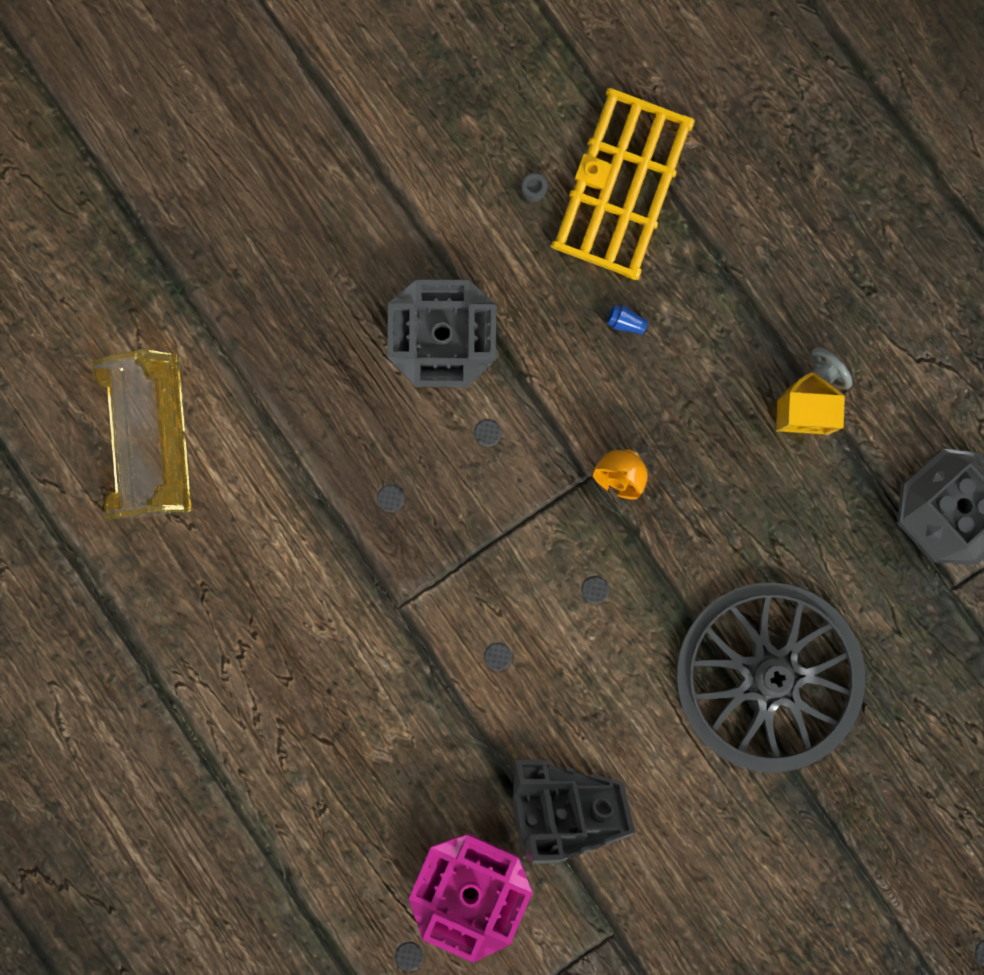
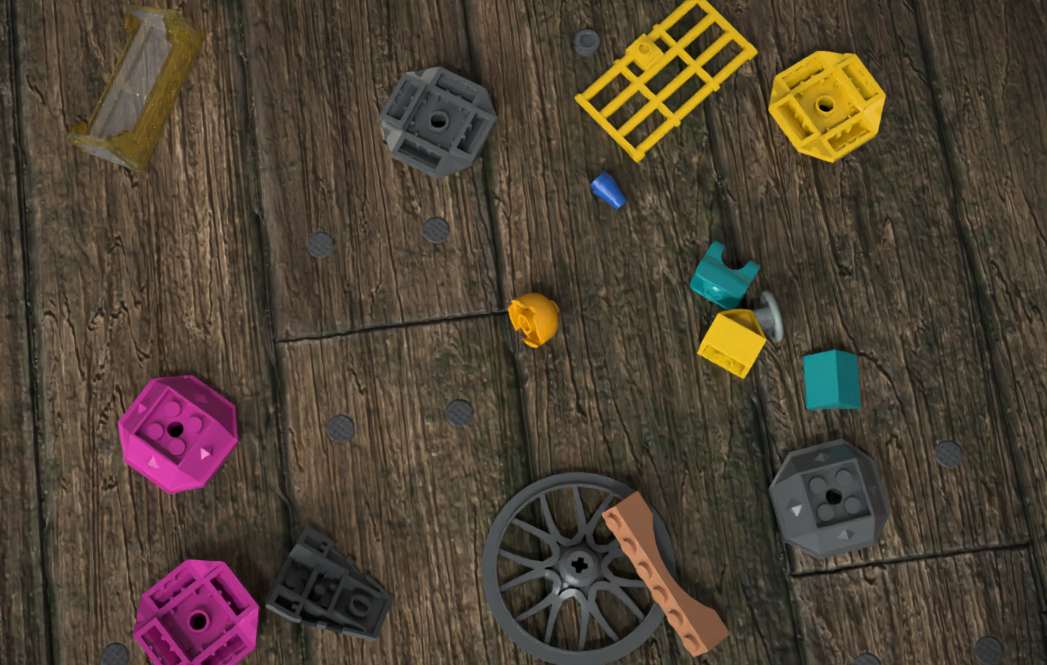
camera: 30 degrees right, 10 degrees down
(365, 706) = (195, 455): none -> dark pink piece
(768, 358) = (719, 282): none -> teal piece
(802, 124) = (841, 86): none -> yellow piece
(807, 621) = (633, 527): none -> nougat arch
(906, 399) = (831, 381): none -> teal slope

